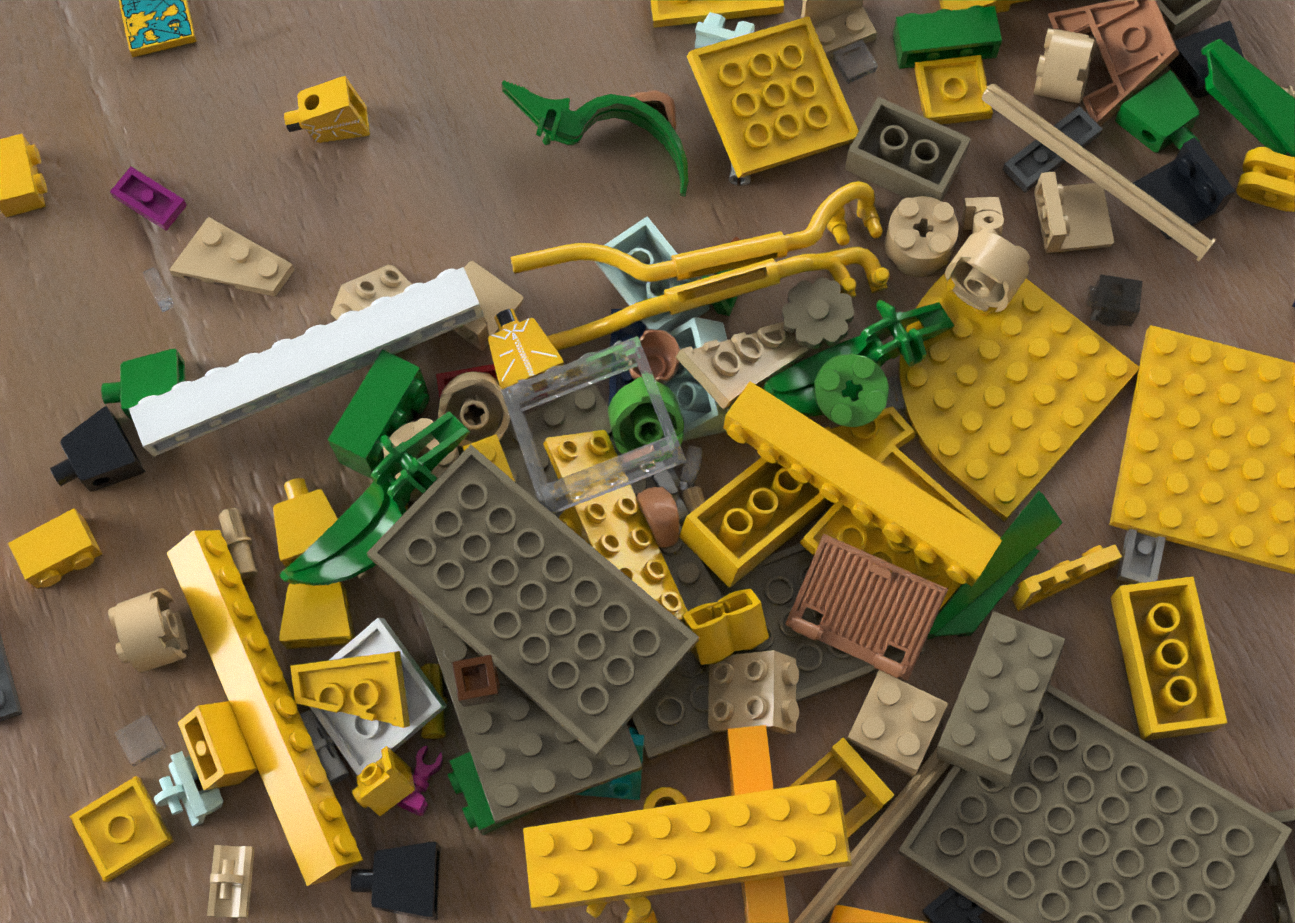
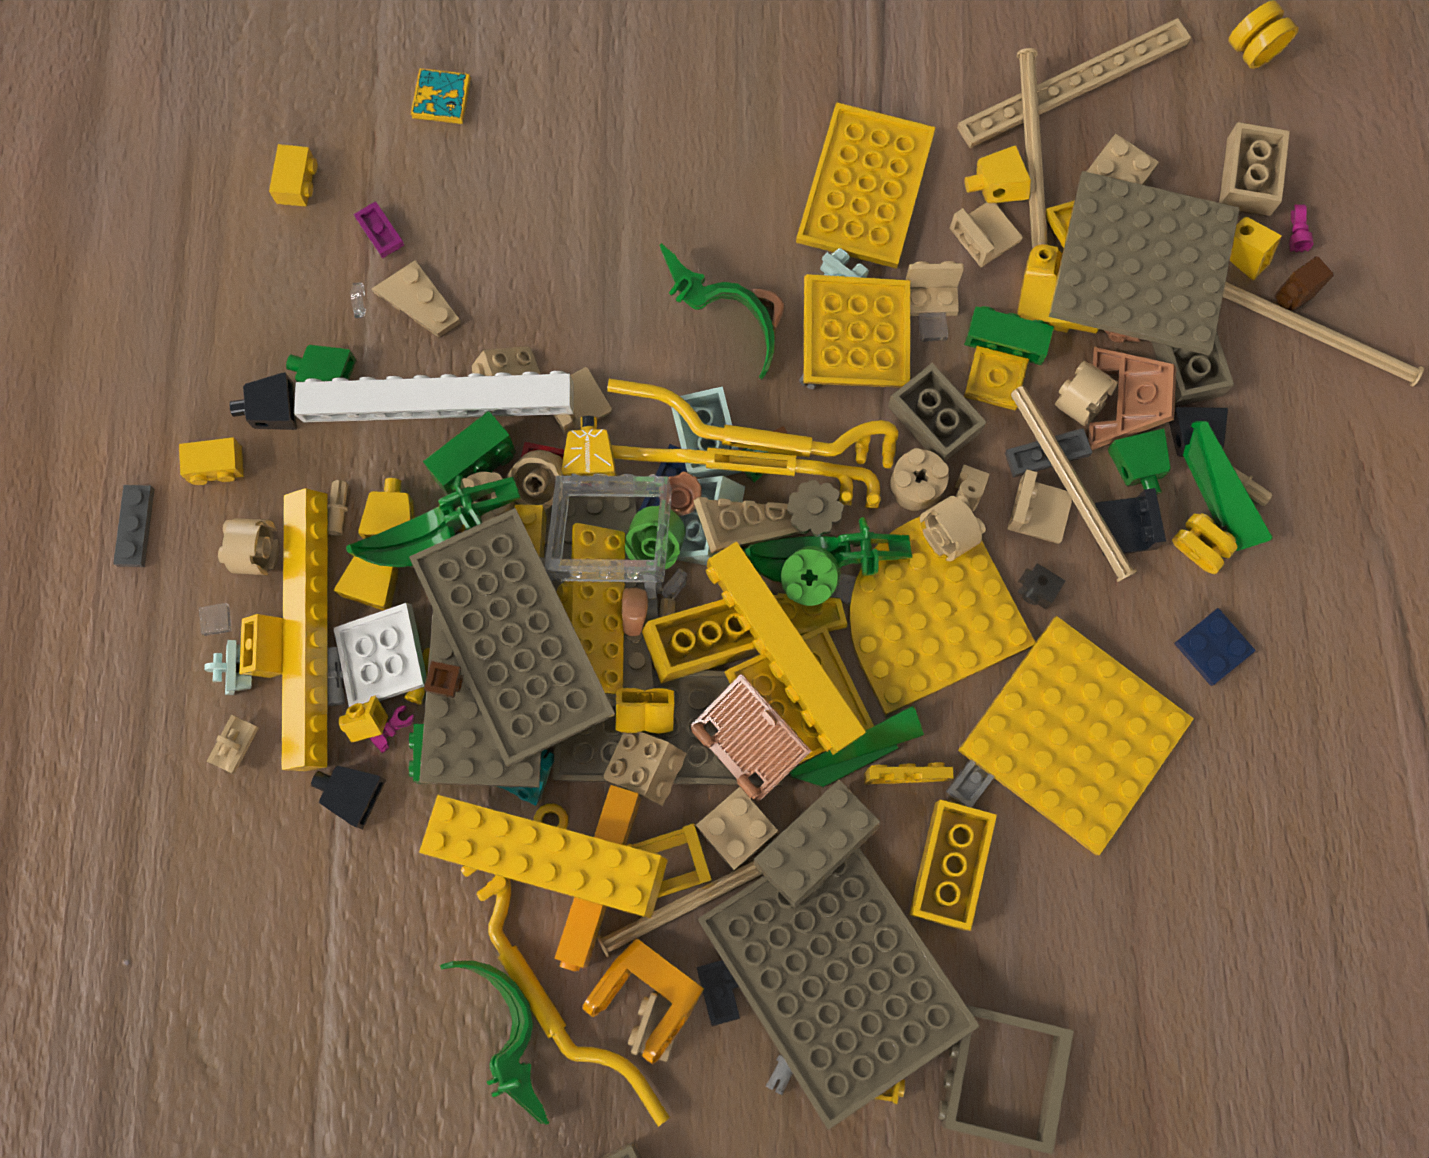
camera: 20 degrees right, 5 degrees up
(121, 829) = (177, 676): yellow tile -> none
(330, 112) = (532, 216): yellow torso -> none
(355, 685) = (371, 644): yellow wing -> none

